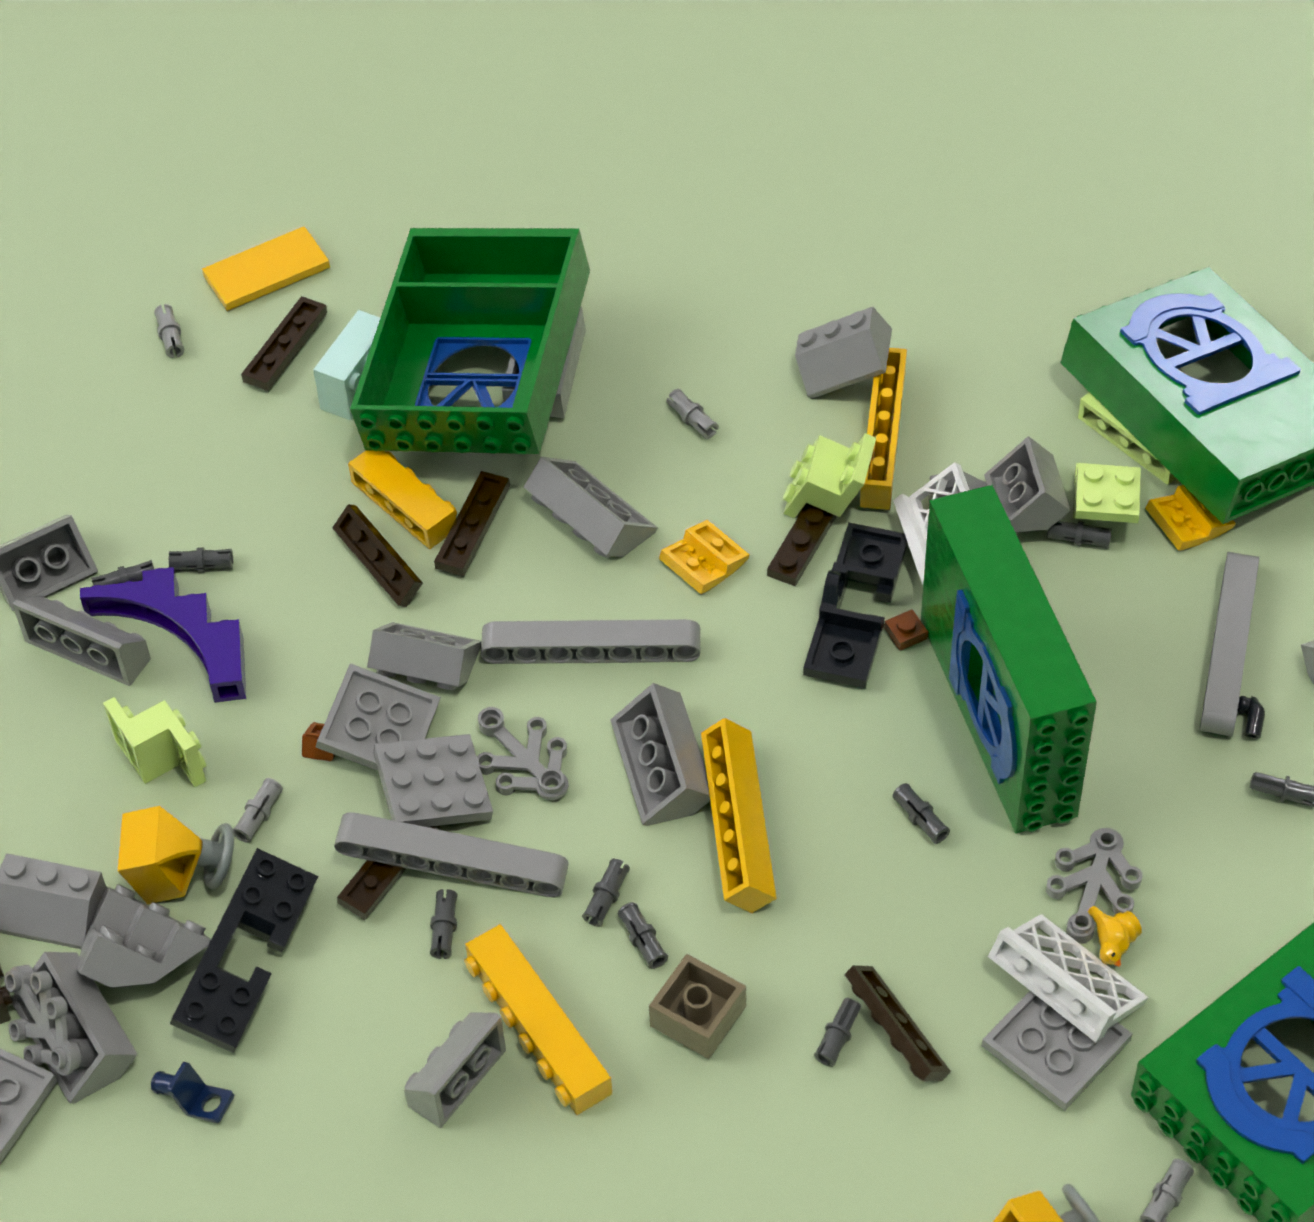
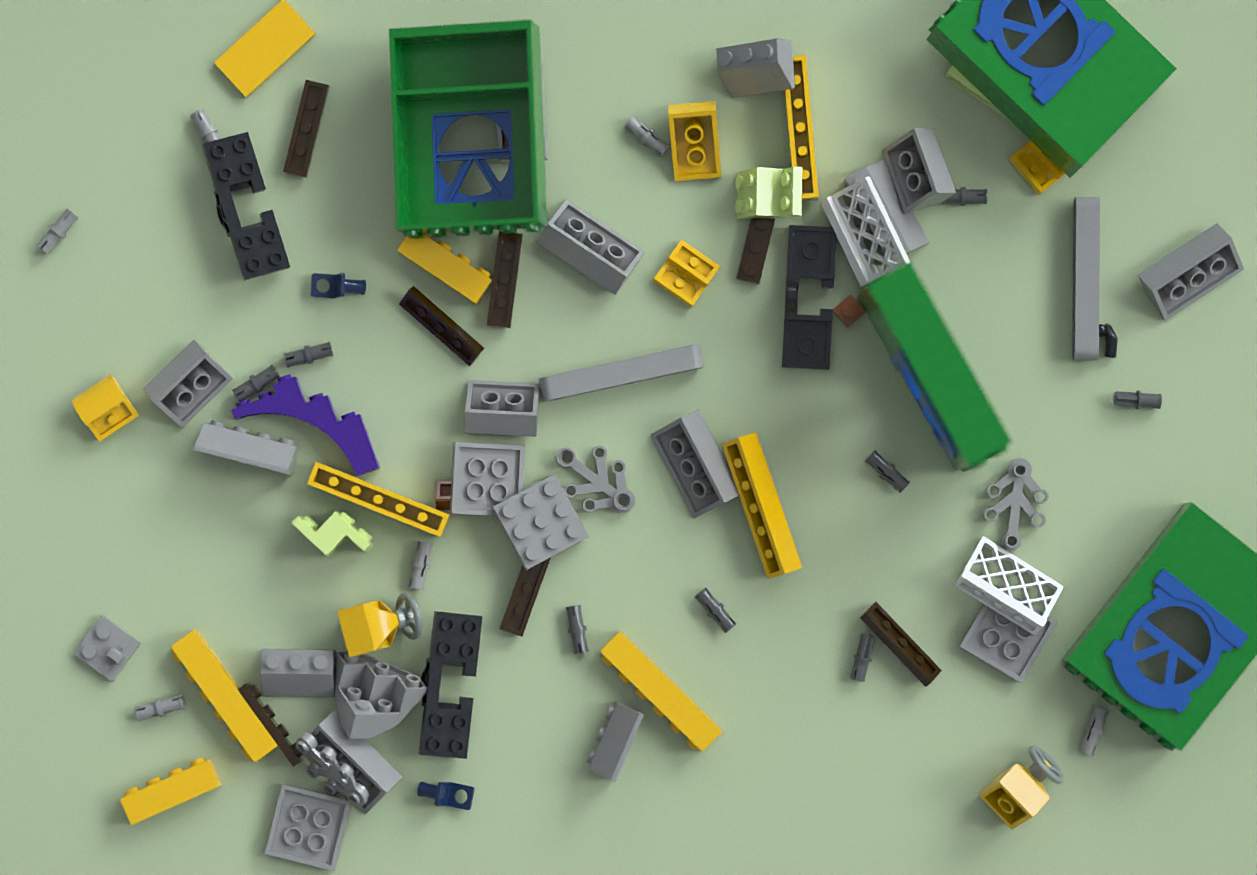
camera: 10 degrees left, 35 degrees up
(181, 361) = (236, 169): none -> black plate
(231, 718) = (378, 499): none -> yellow brick
(263, 495) = (337, 285): none -> dark blue bracket
(343, 364) = (373, 152): light aqua brick -> none
(451, 854) = (570, 581): light grey beam -> none
(606, 892) = (682, 582): dark grey pin -> none
(697, 1006) = (767, 663): dark tan brick -> none
(749, 422) = (694, 141): none -> yellow slope
(1107, 493) = (979, 160): yellowish green bracket -> none
(1115, 934) = (1036, 545): yellow animal -> none

